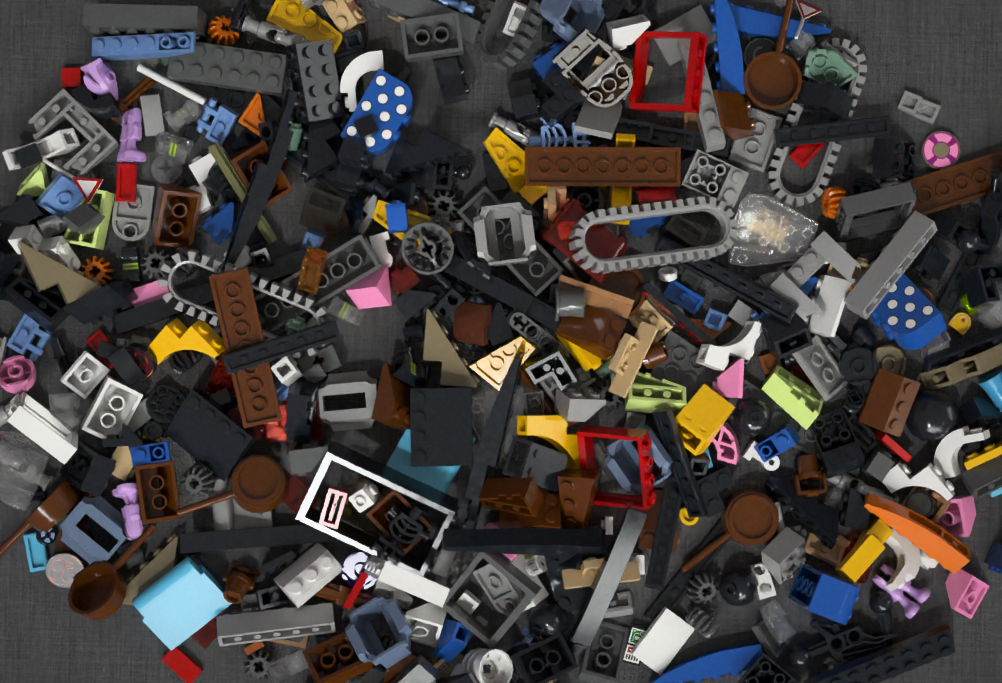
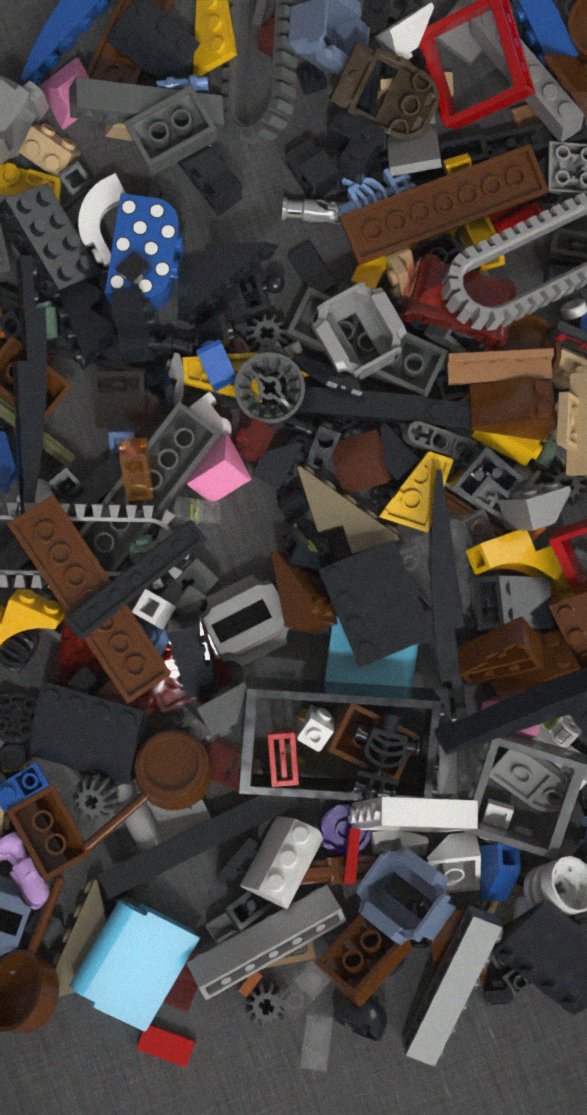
camera: 30 degrees left, 5 degrees down
(238, 583) = (197, 908): reddish brown piece -> none
(508, 158) = (323, 246): yellow wing -> none
(514, 18) = (262, 77): white slope -> none
(543, 63) = (322, 114): blue slope -> none
(569, 302) = (474, 383): dark grey piece -> none
(640, 226) = (517, 260): blue slope -> none

